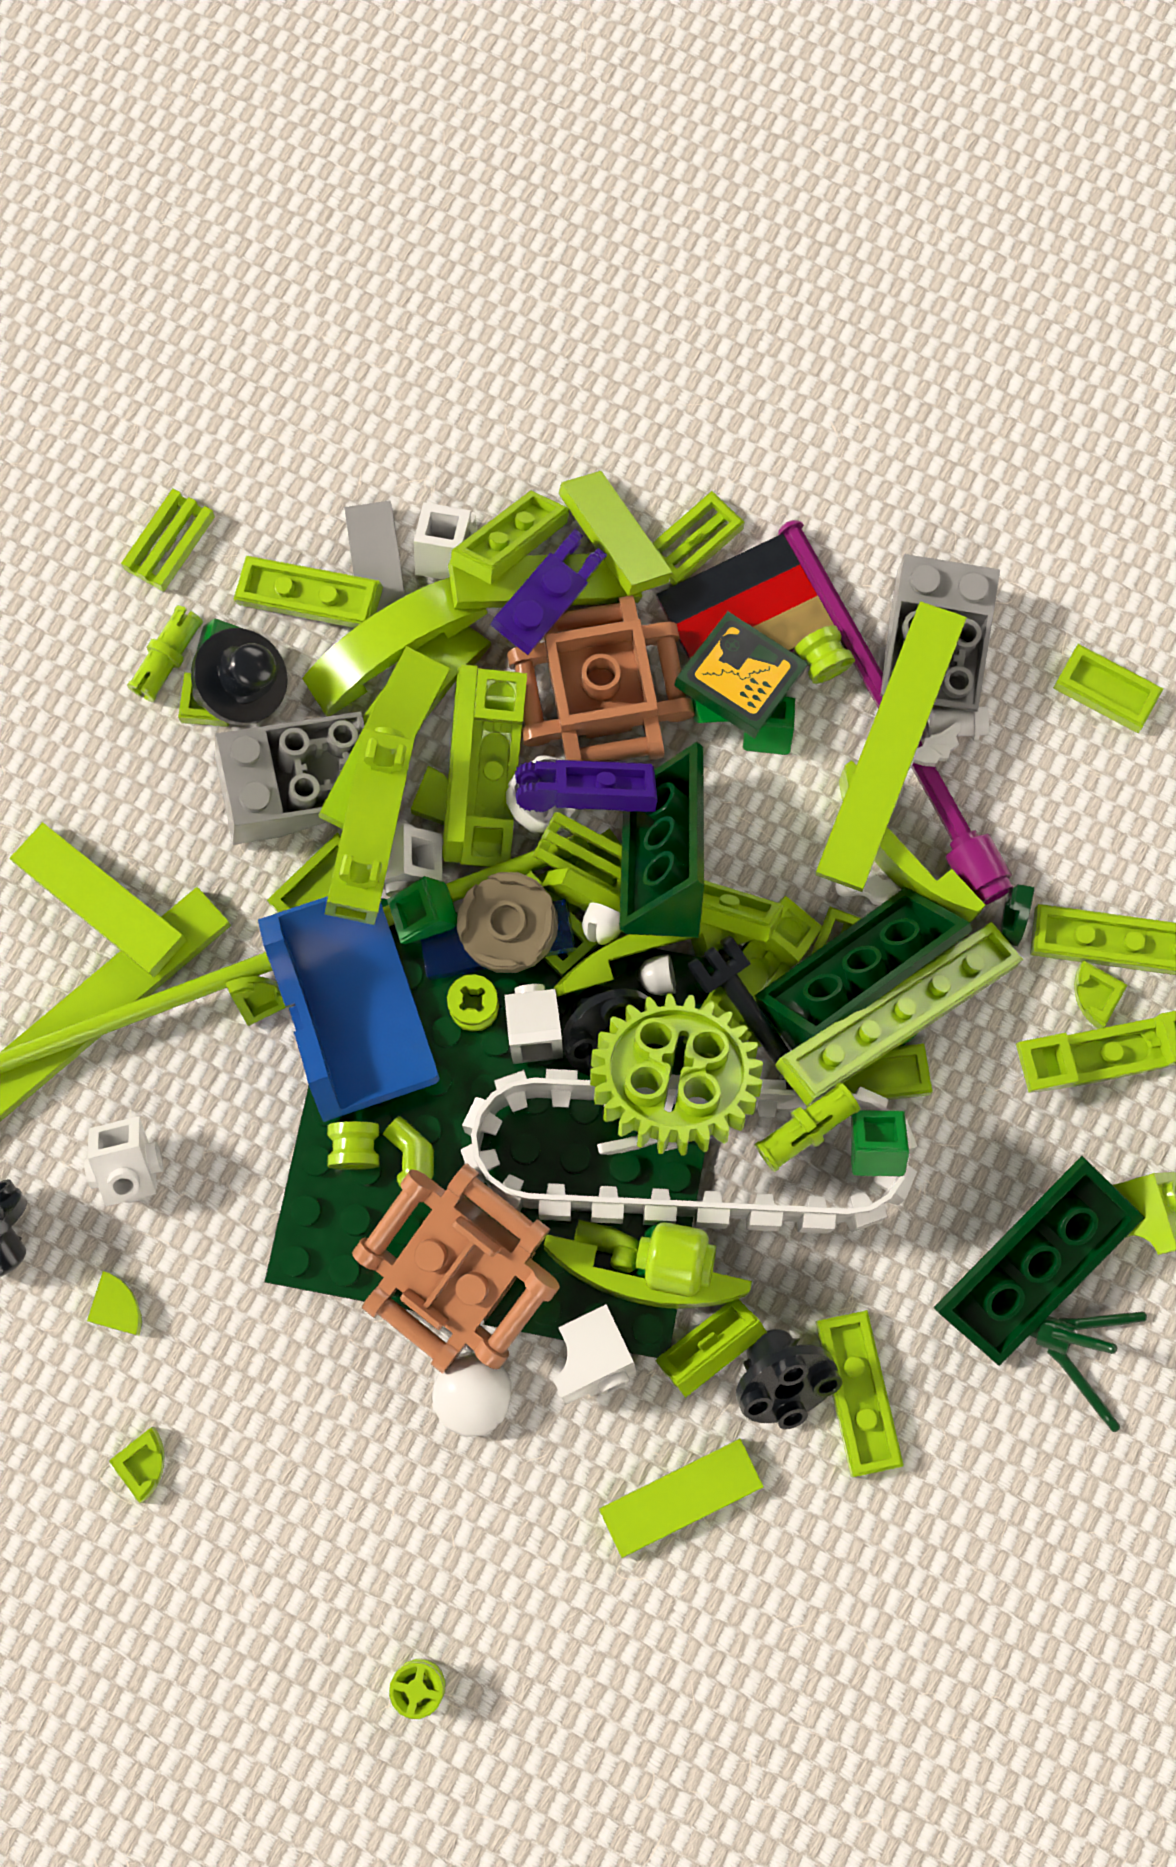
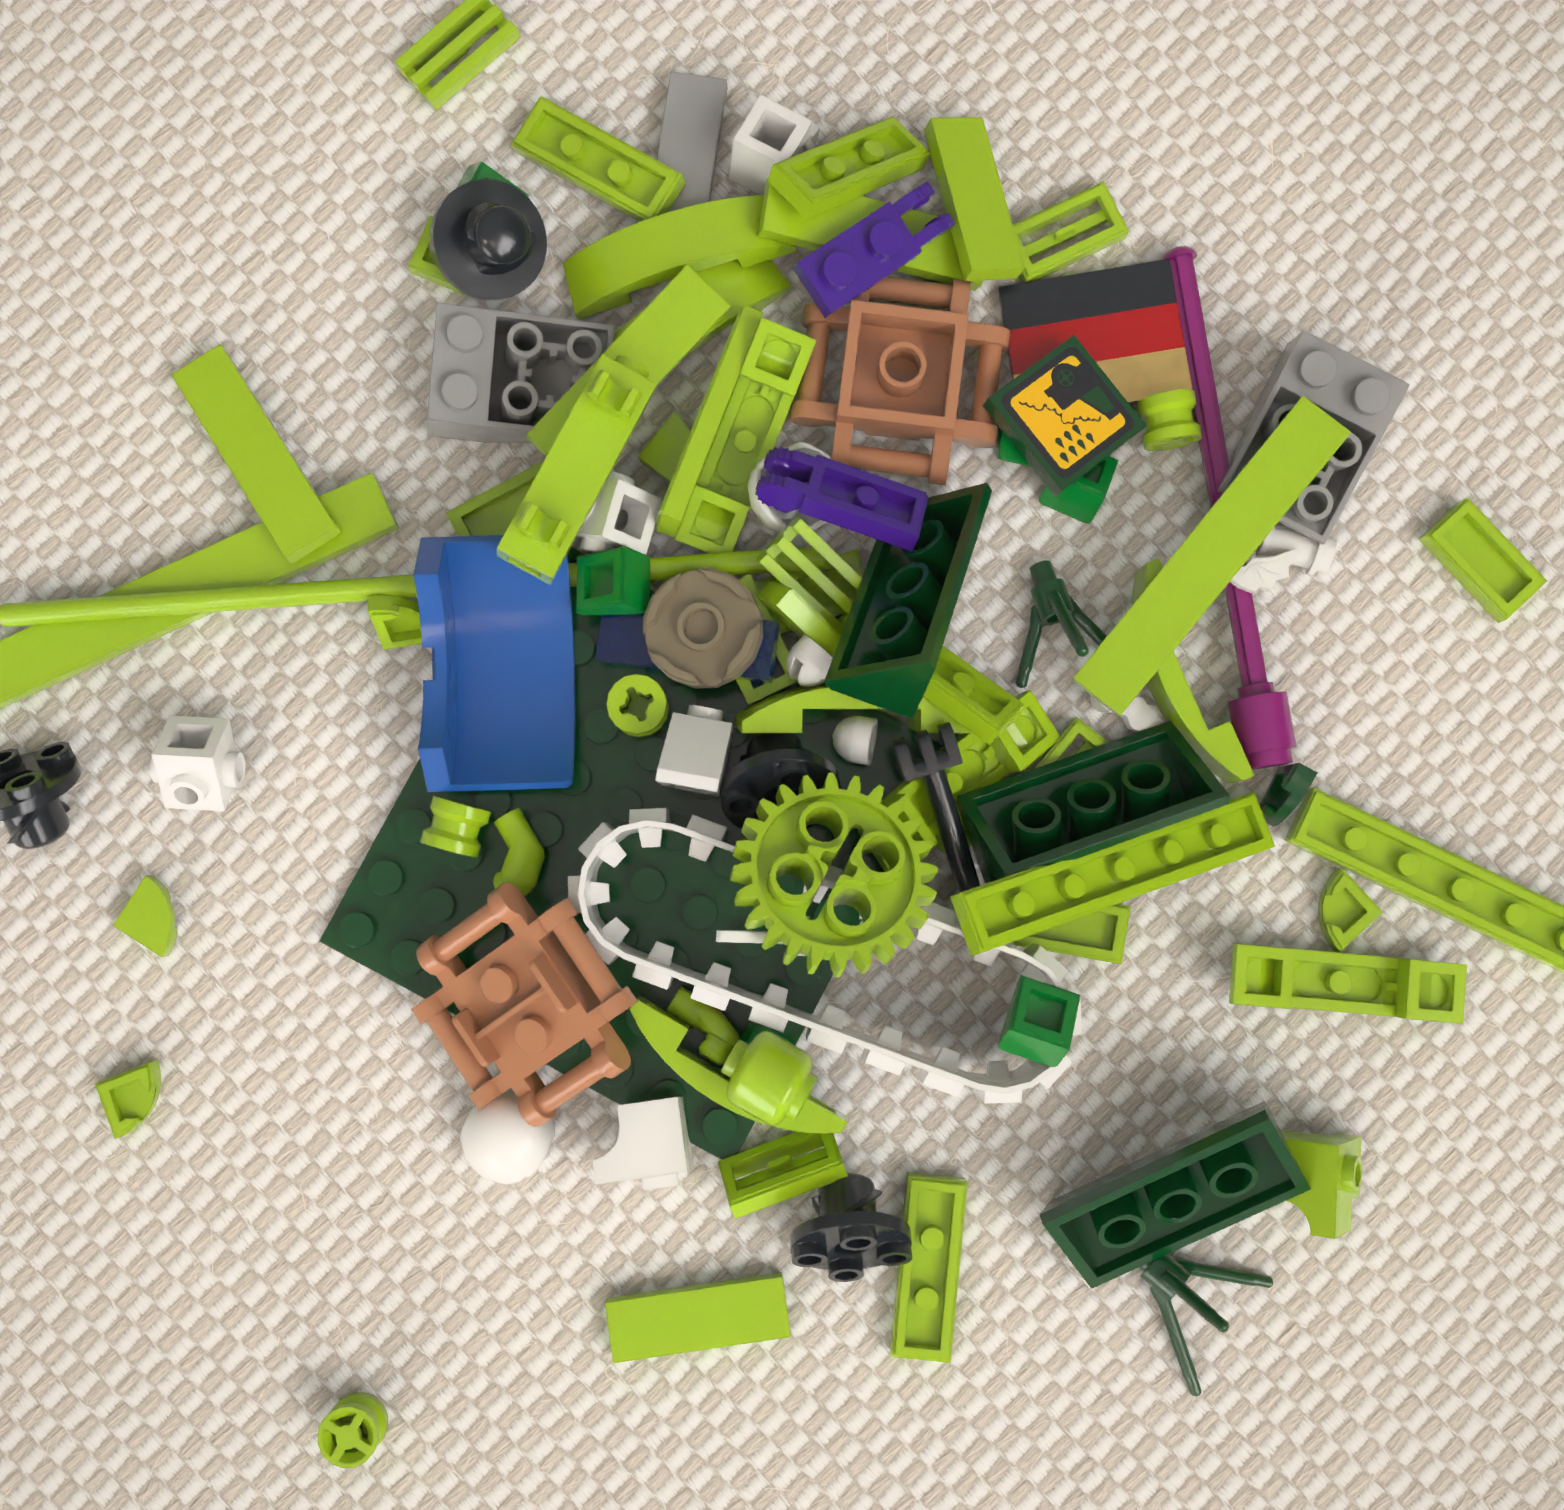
camera: 15 degrees right, 10 degrees up
(165, 653) = (414, 185): lime pin -> none
(780, 827) = (1052, 607): none -> dark green plant
(807, 1126) = (964, 981): lime pin -> none

